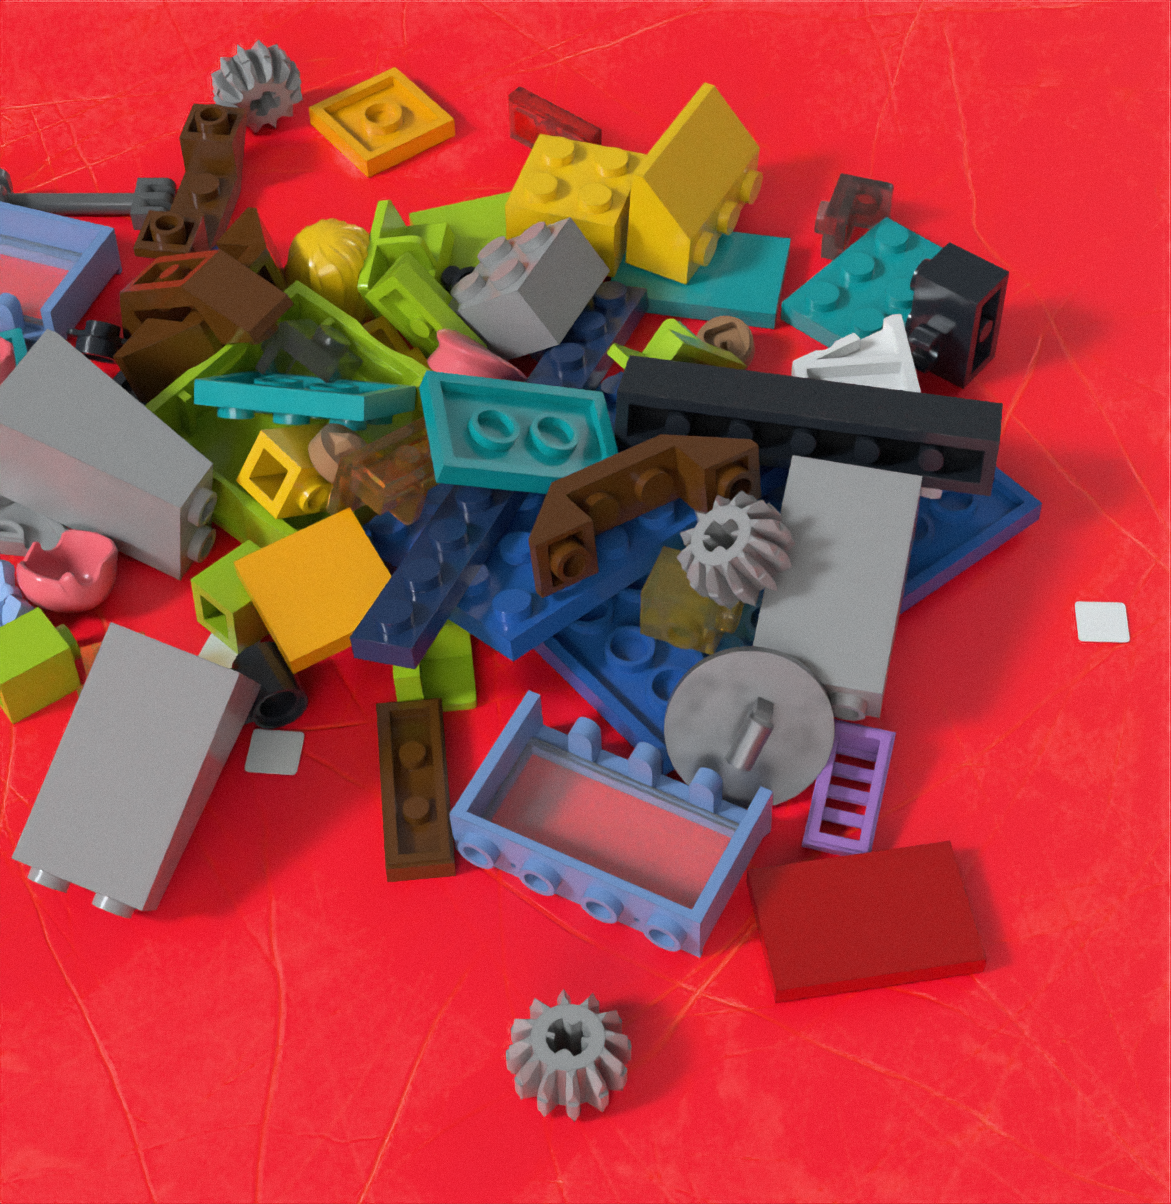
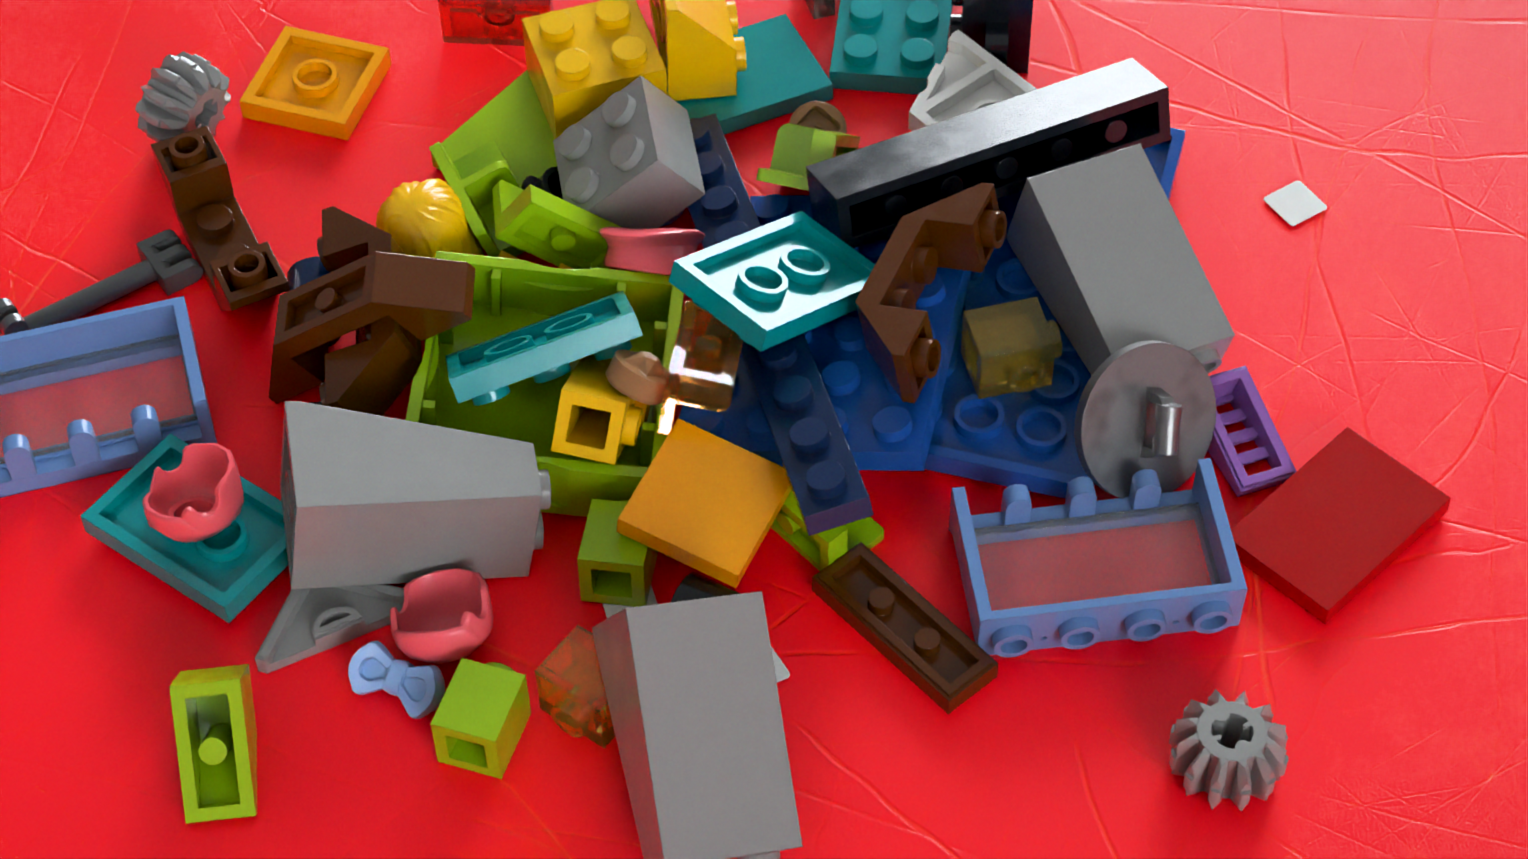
camera: 35 degrees left, 0 degrees up
(98, 340) = (257, 408): black plate -> none
(313, 345) = (512, 300): clear smoke bracket -> none
(736, 550) = (1039, 260): light grey gear -> none

